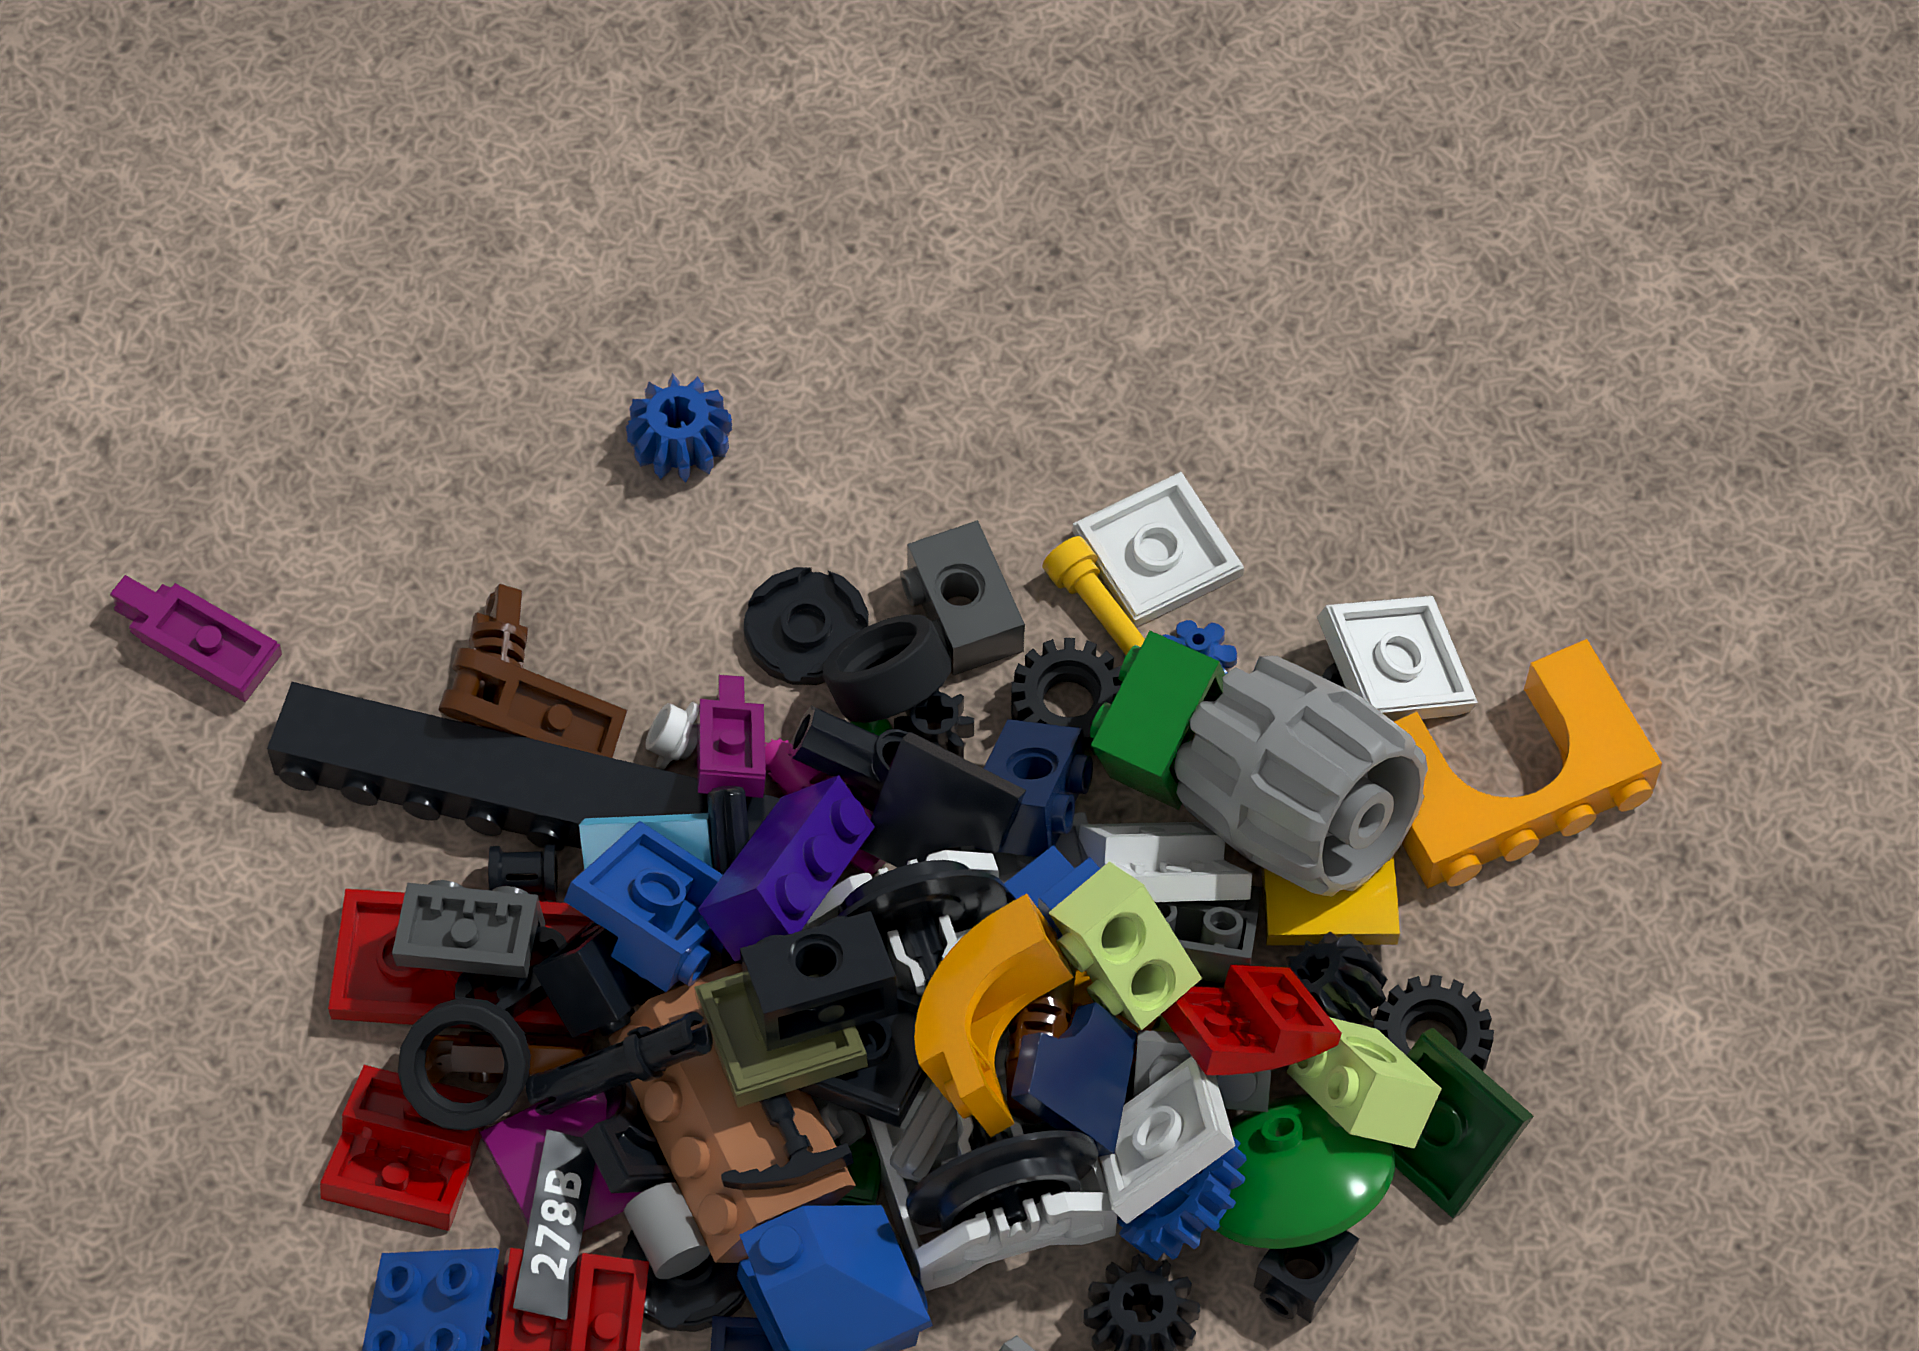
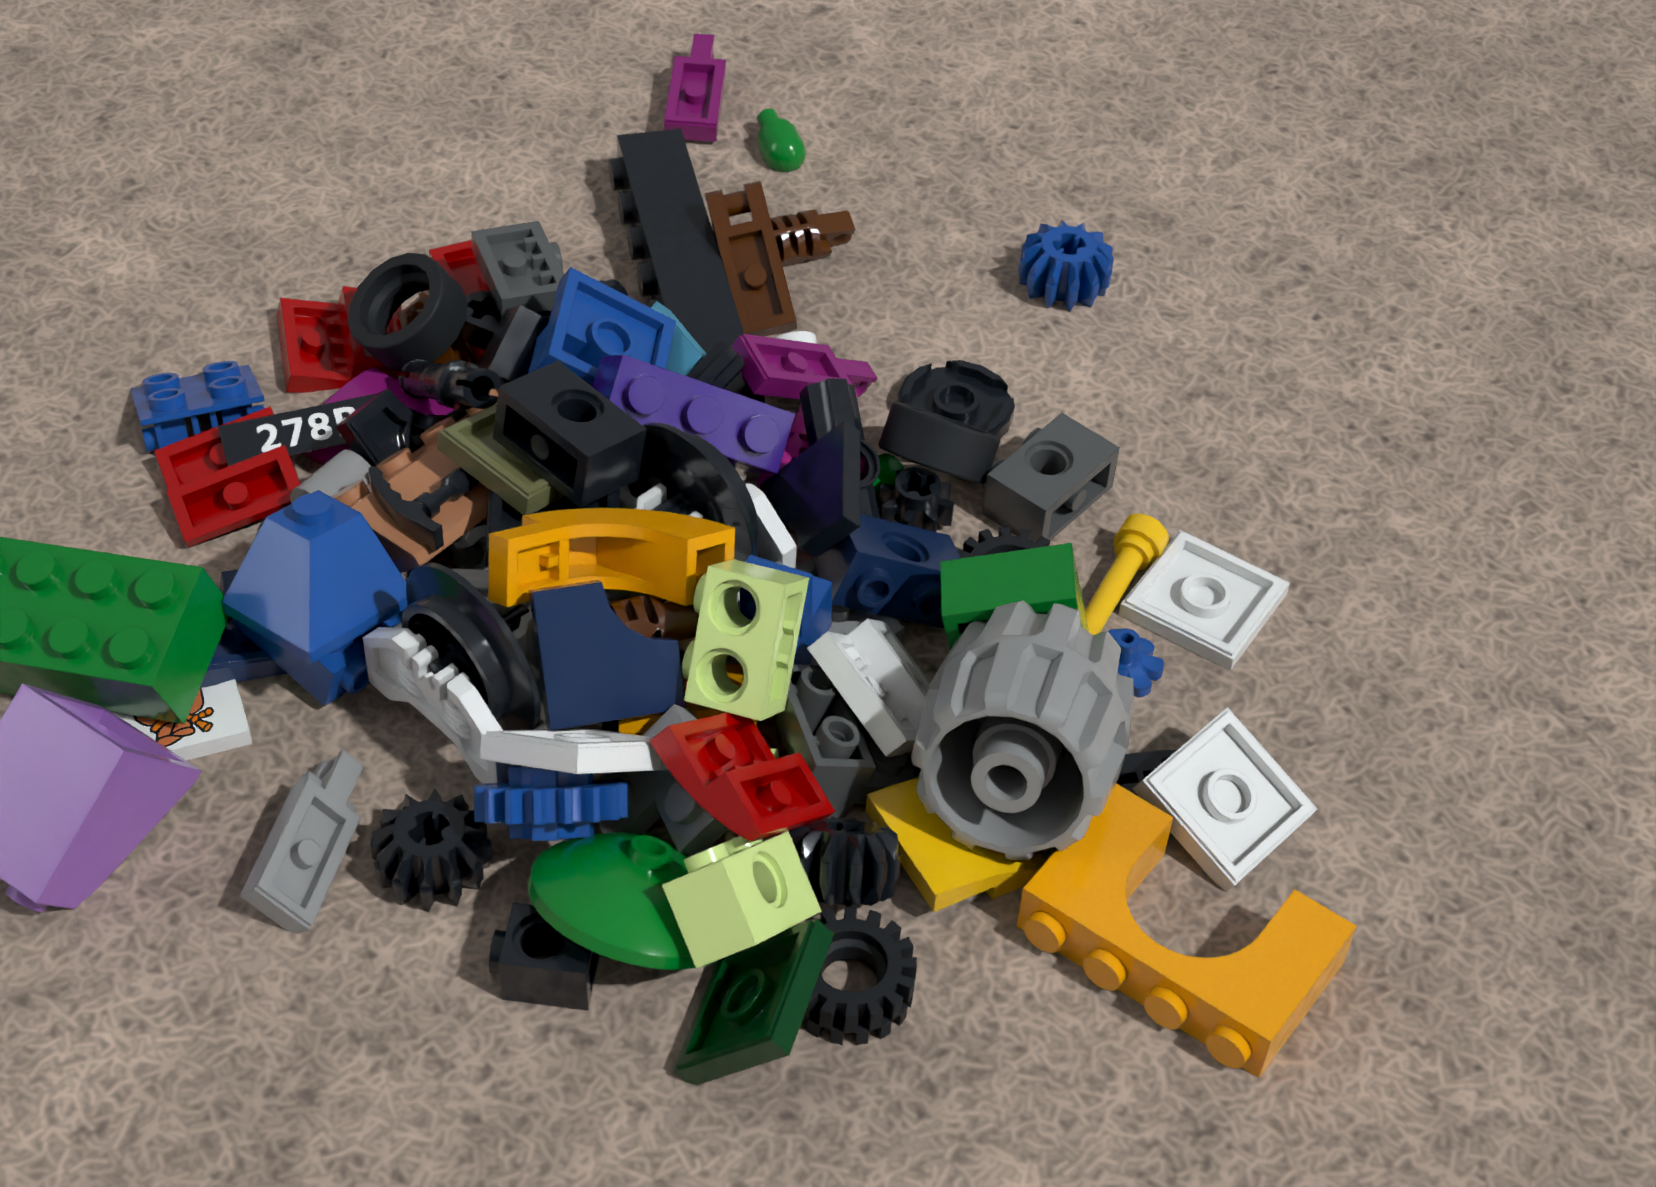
camera: 60 degrees right, 15 degrees down
(327, 594) = (780, 142): none -> green cylinder

